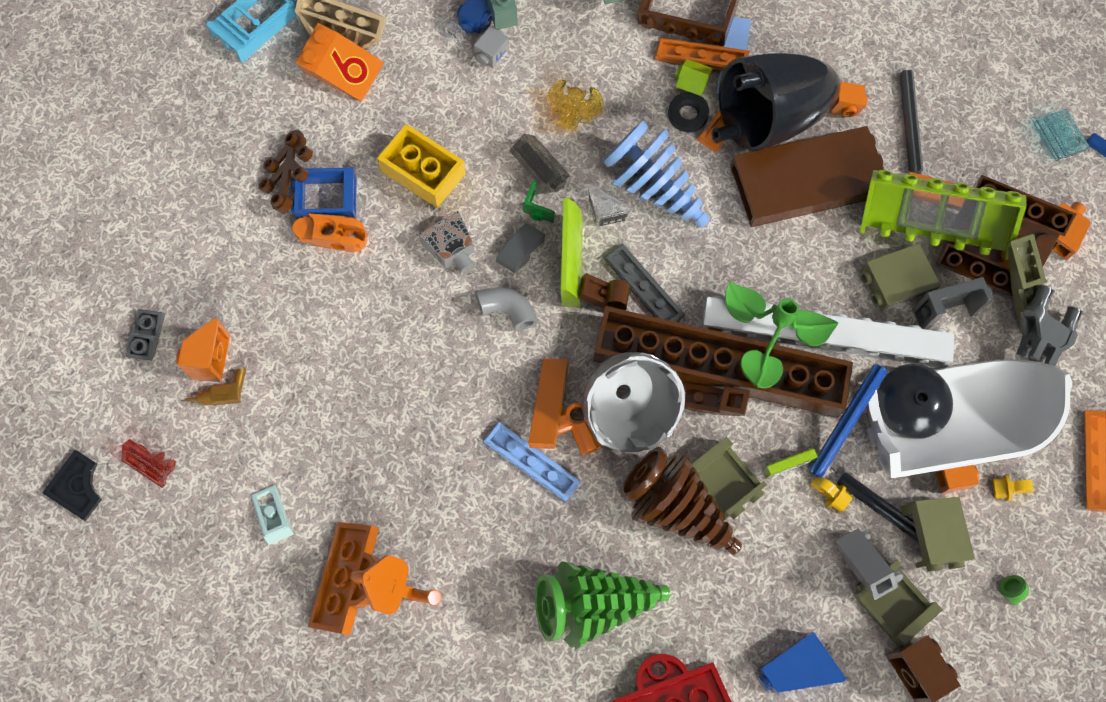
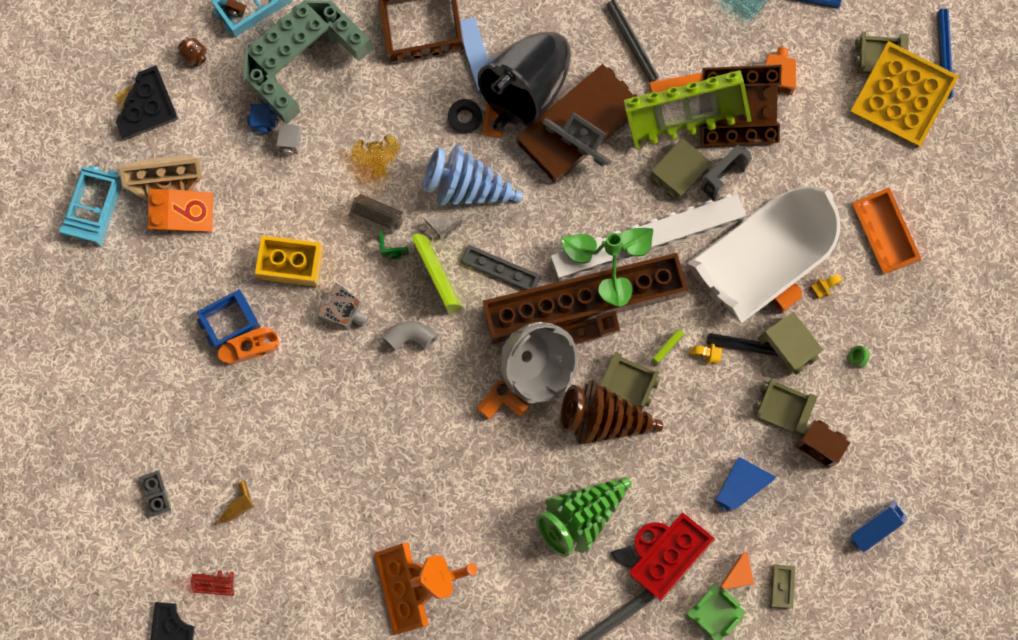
camera: 25 degrees left, 5 degrees up
(205, 352) = (210, 484): orange slope -> none
(272, 516) = (324, 573): light aqua slope -> none
(293, 145) = (183, 291): reddish brown plant -> none
(518, 248) = (395, 286): dark grey slope -> none
(532, 462) = (487, 439): light blue tile -> none
(548, 404) = (478, 392): orange tile -> none
(604, 293) = (475, 291): reddish brown plate -> none
(619, 678) = (624, 556): none -> black tile
(693, 77) = (454, 87): lime brick -> none
(710, 55) = (451, 65): orange tile -> none
(809, 185) = (583, 135): none -> dark grey bracket
(848, 420) = (693, 296): blue axle -> none
(850, 100) = (581, 47): orange brick -> none
(867, 563) = (753, 391): light grey brick -> none
(901, 405) = (722, 264): black dish -> none
(1025, 272) = (771, 132): olive slope -> none
(1042, 333) = (800, 164): dark grey connector -> none

